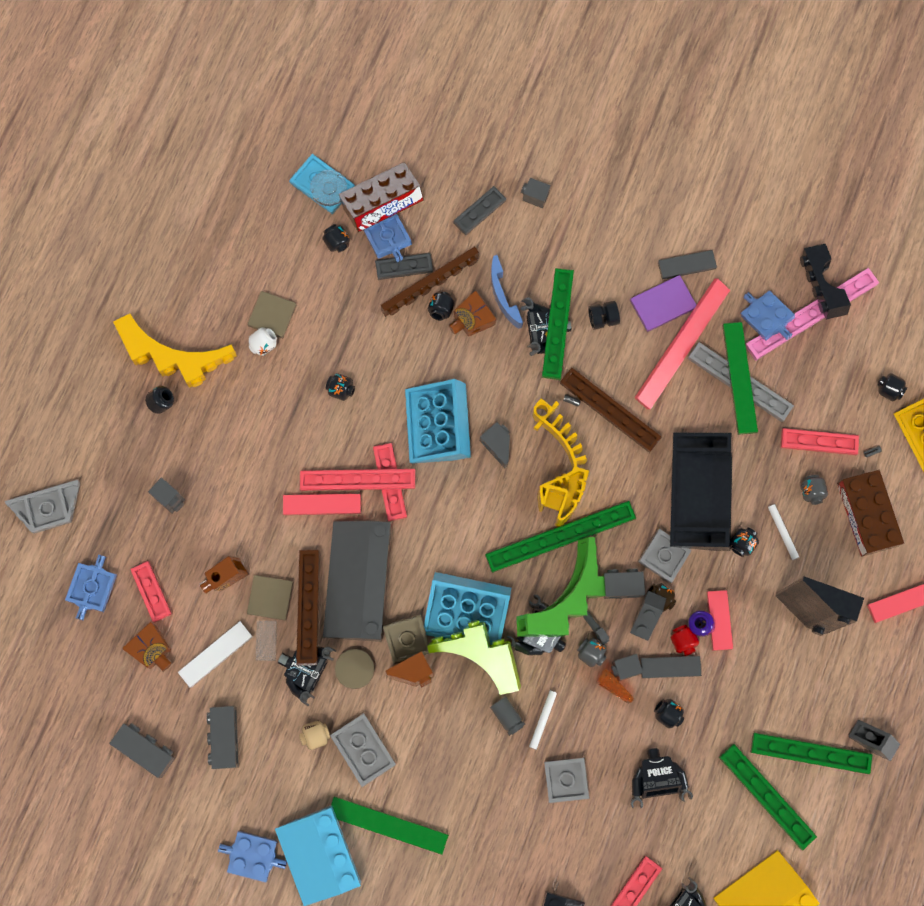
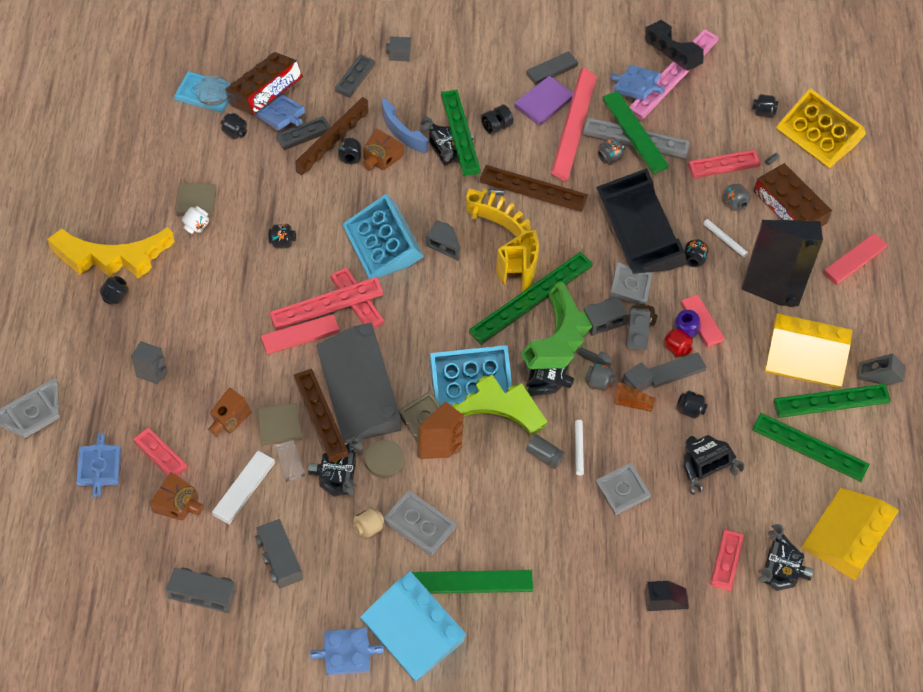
camera: 20 degrees left, 20 degrees down
(707, 390) = (611, 151): none -> dark grey head
(810, 693) = (808, 350): none -> slope

